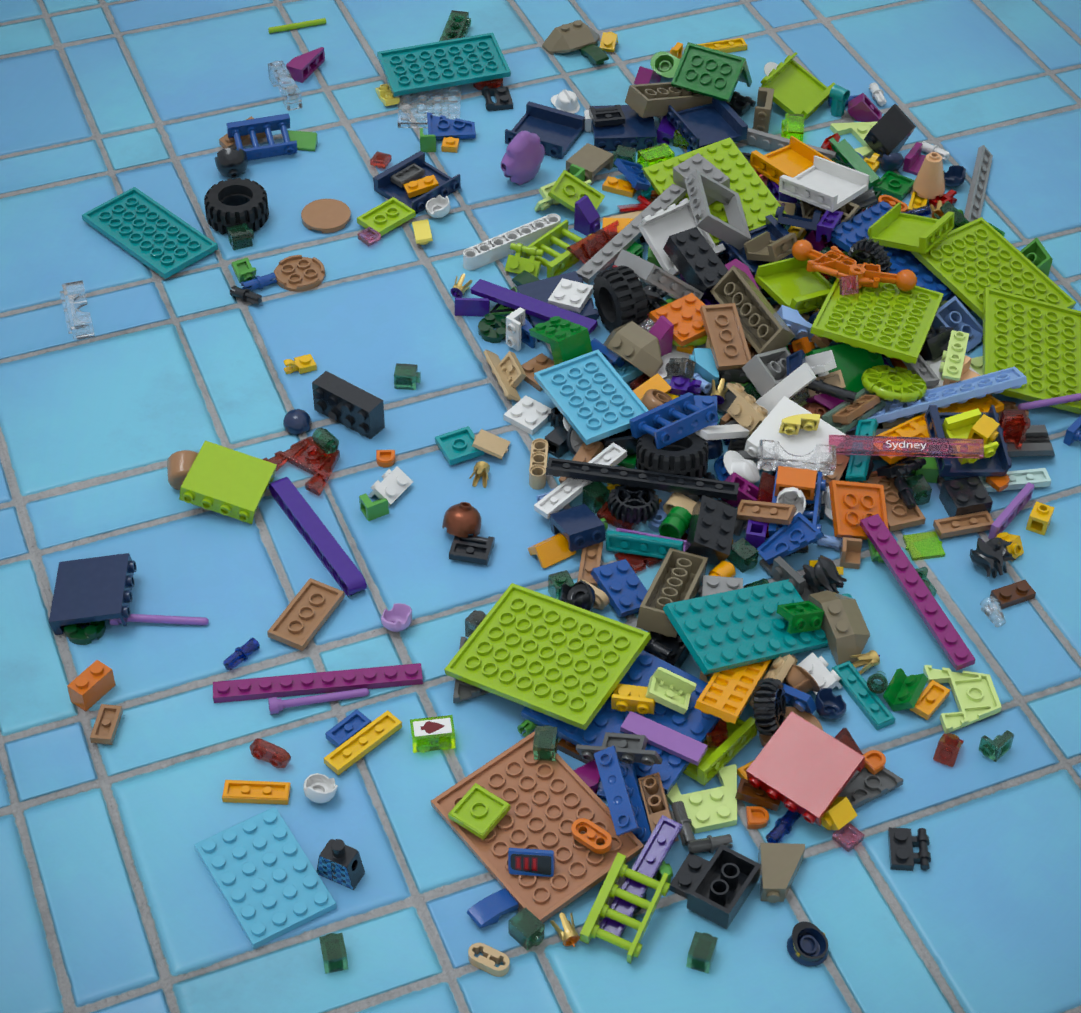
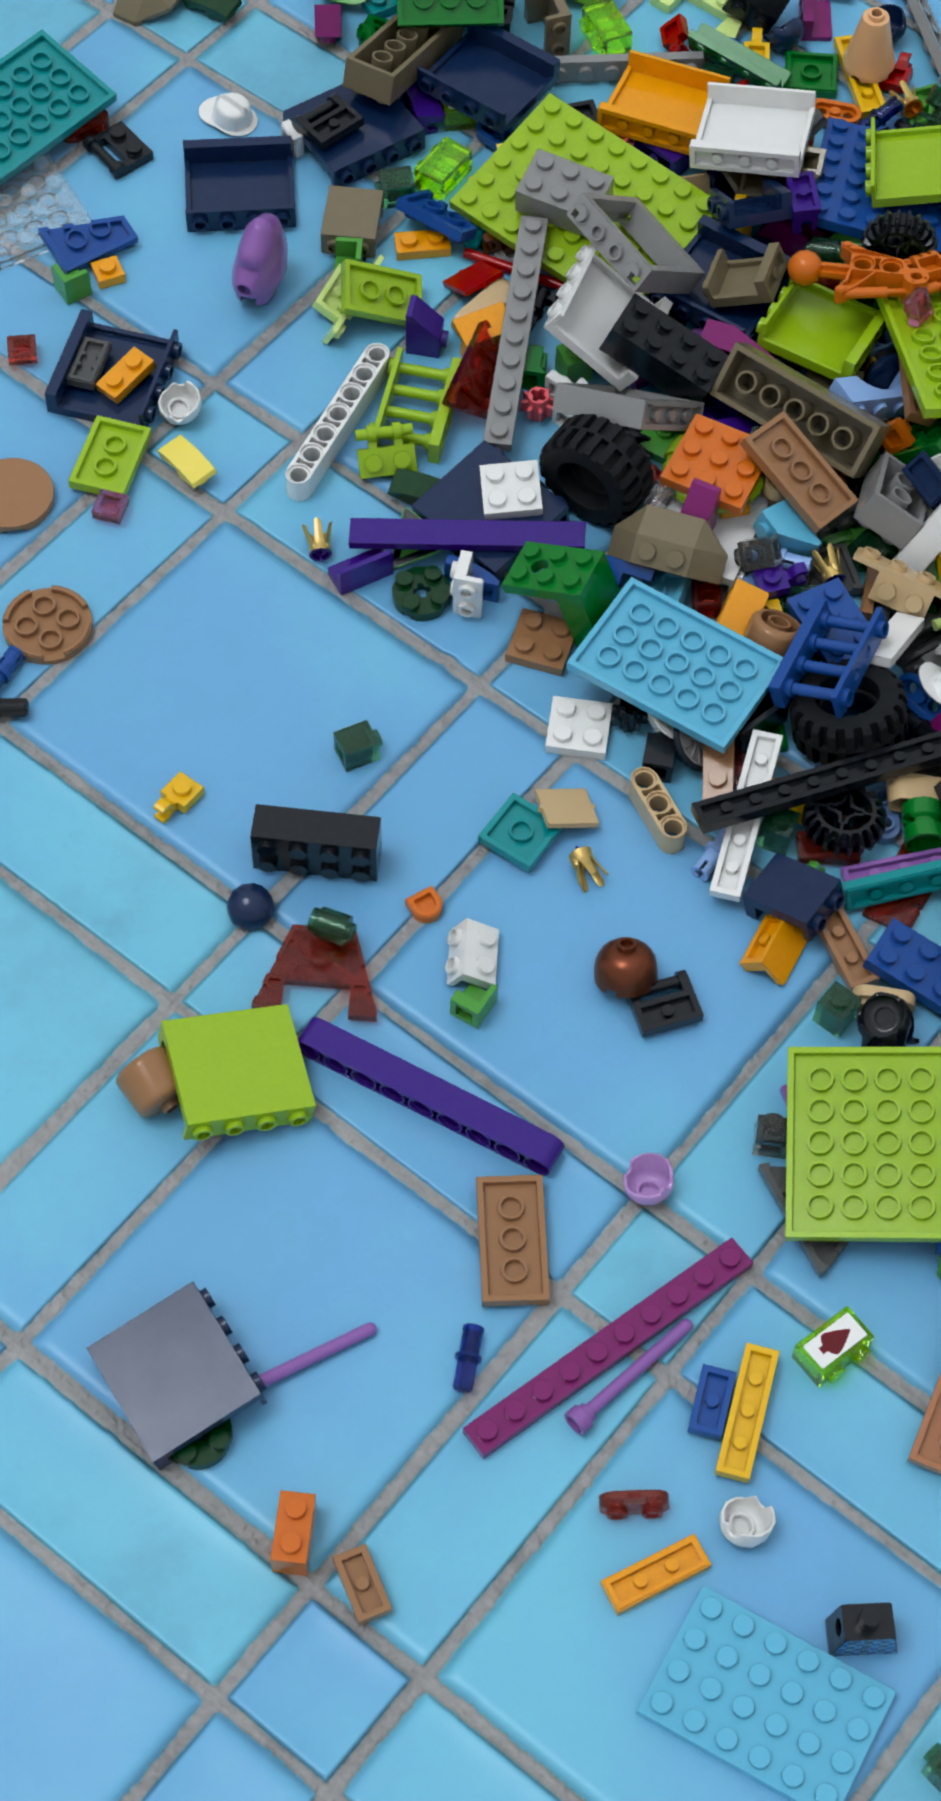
camera: 30 degrees left, 15 degrees up
(508, 372) = (502, 667): tan bracket -> none

